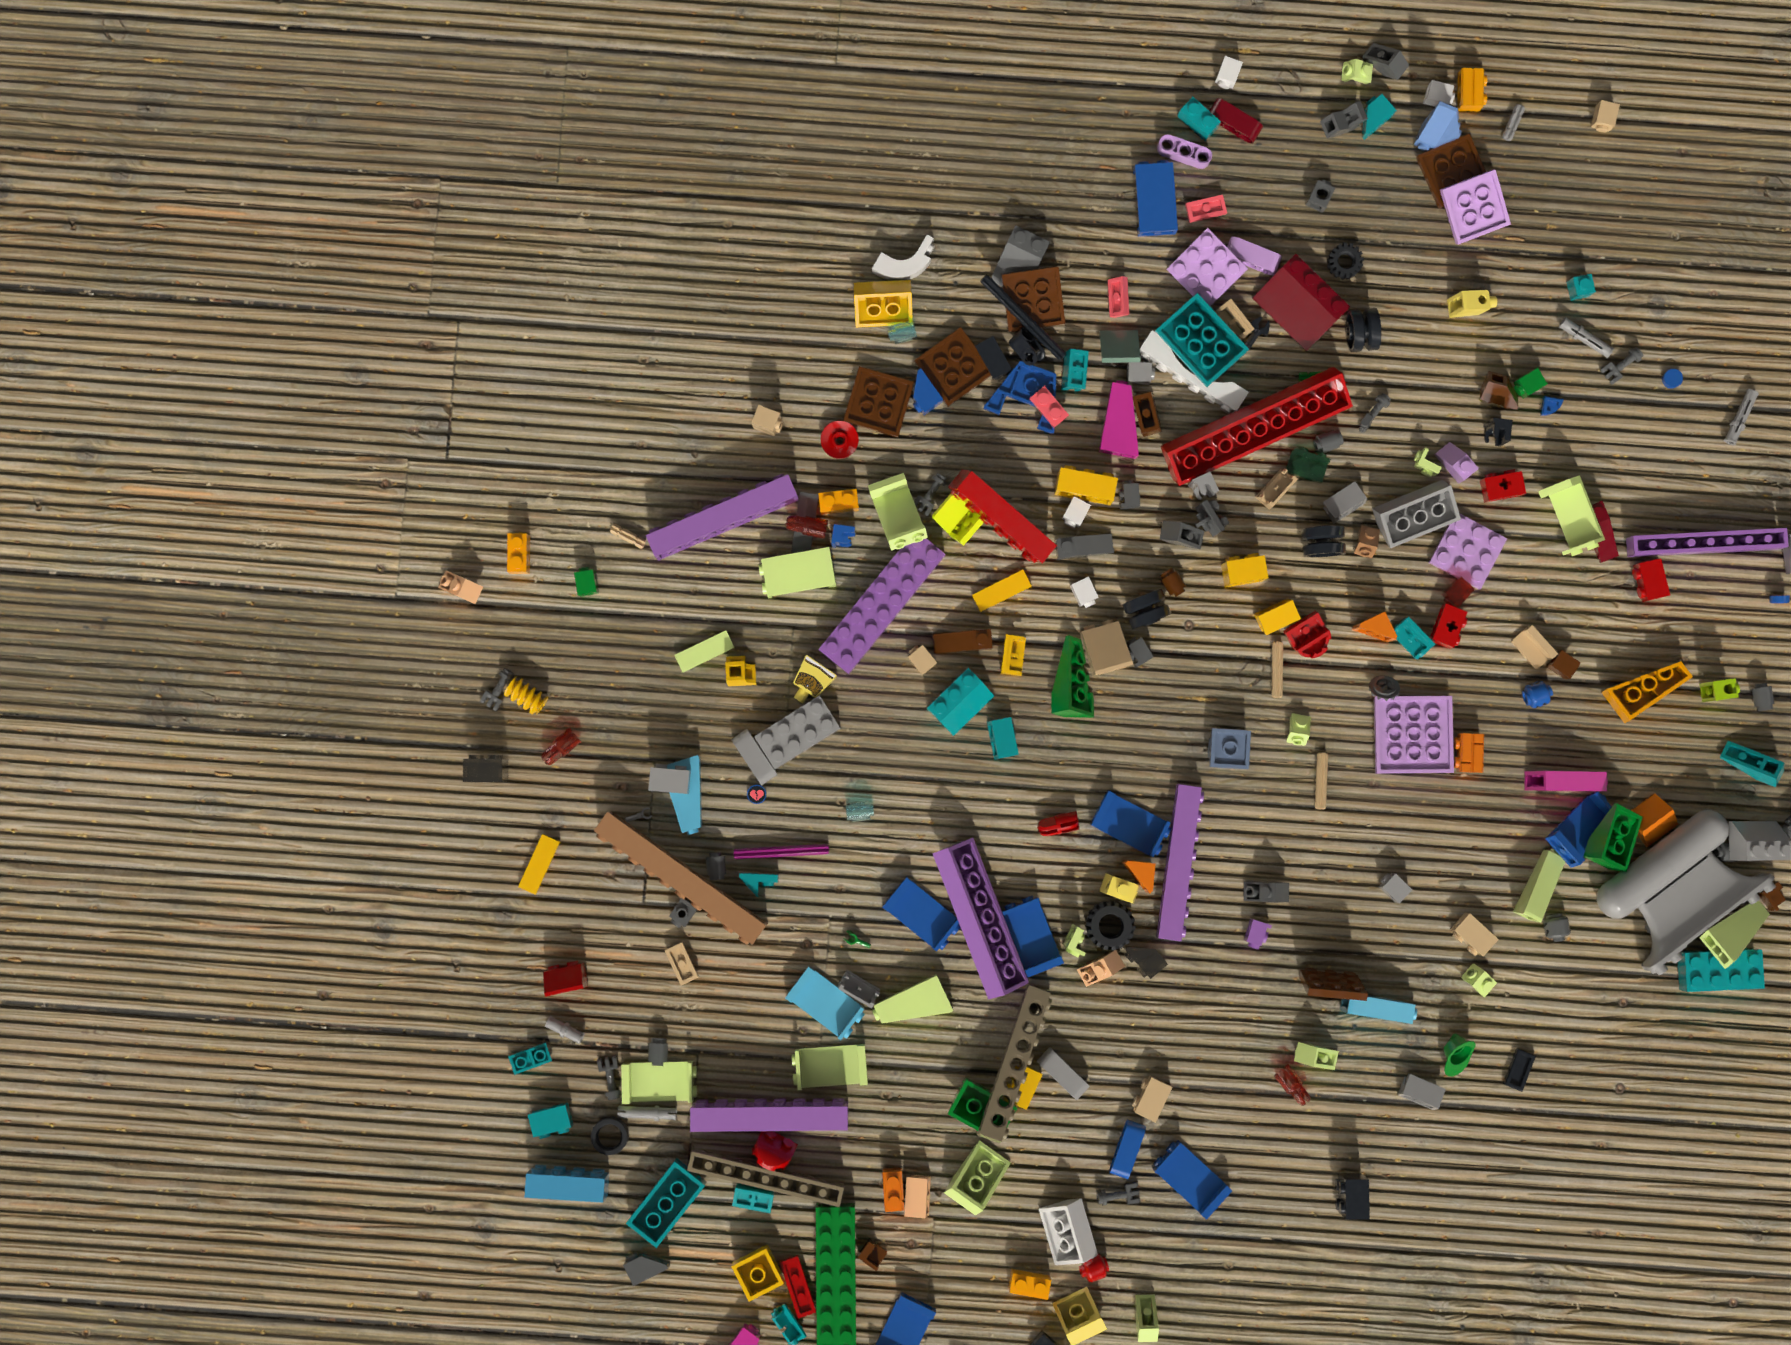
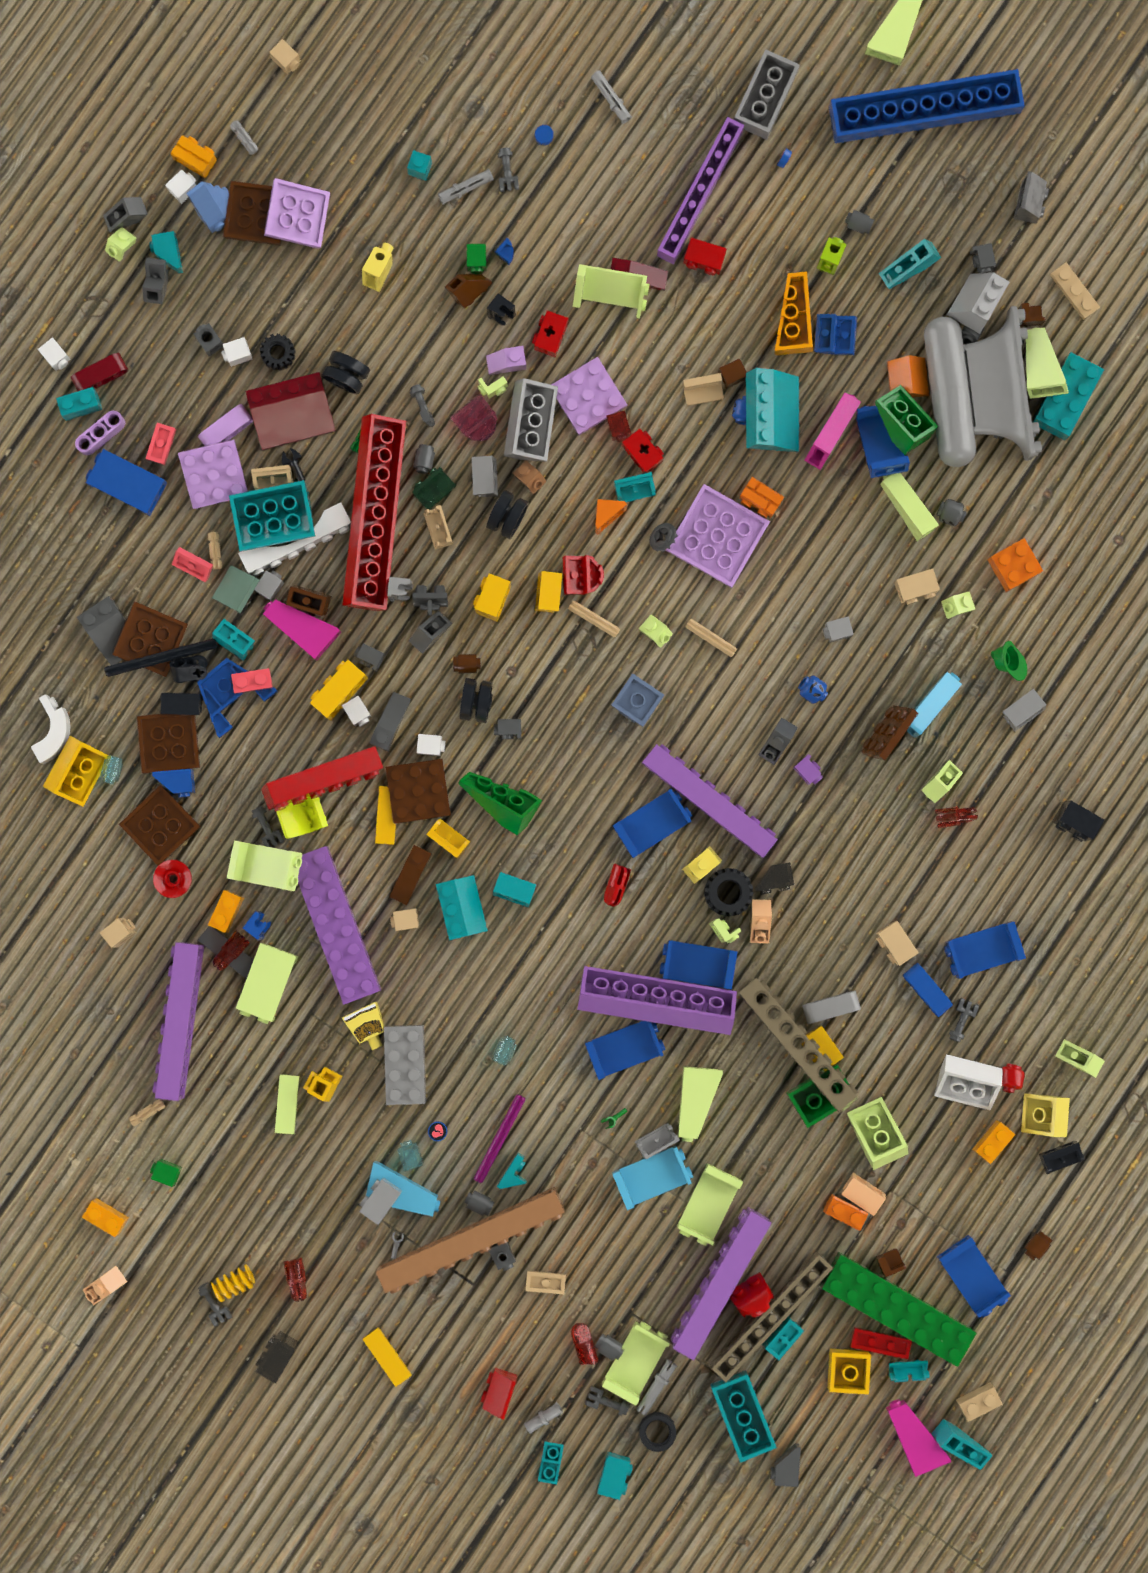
camera: 60 degrees left, 0 degrees up
(567, 1184) = (677, 1493): dark azure brick -> none
(647, 1028) = (584, 1344): none -> clear red arm
(722, 782) = (410, 1155): none -> clear light blue brick
(754, 756) = (403, 1114): light grey beam -> none
(1038, 605) = (418, 791): none -> reddish brown plate
(1105, 648) = (488, 755): tan slope -> none
(1141, 309) = (214, 548): none -> tan axle
(1142, 872) = (699, 838): orange slope -> none
(1324, 226) = (236, 352): none -> white brick
(1329, 896) = (813, 689): none -> blue head
(1389, 465) = (476, 419): none -> clear pink slope
(1519, 1070) = (1053, 616): black tile -> none
(1544, 1010) = (1015, 565): none -> orange brick
(1552, 717) = (772, 410): none -> teal slope
(1651, 734) = (835, 334): none -> blue slope

